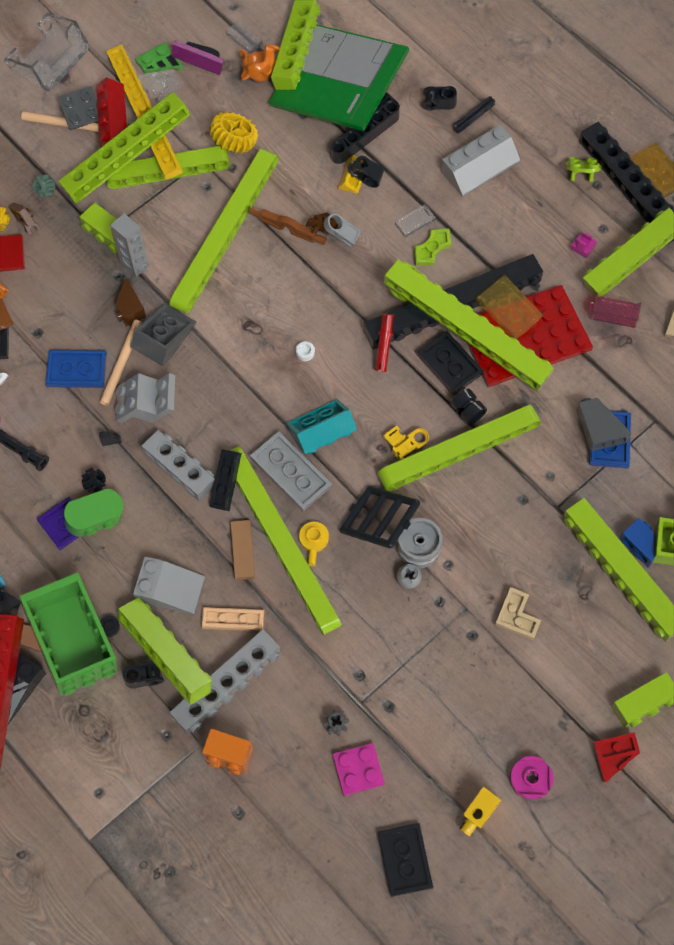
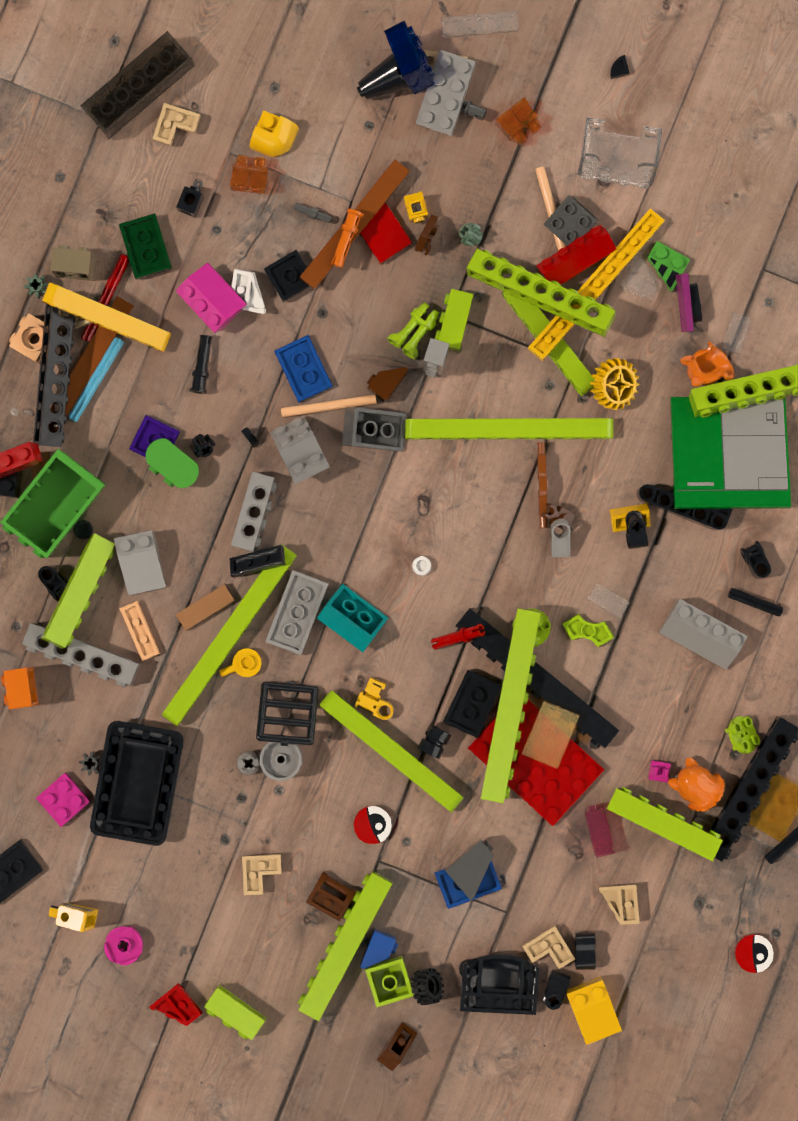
camera: 60 degrees right, 20 degrees up
(97, 279) = (410, 347): none -> lime piece
(377, 686) = (137, 783): none -> black wedge
(520, 496) = (372, 824): none -> tile
(575, 566) = (327, 901): none -> reddish brown plate
(612, 217) = (698, 786): none -> orange hair

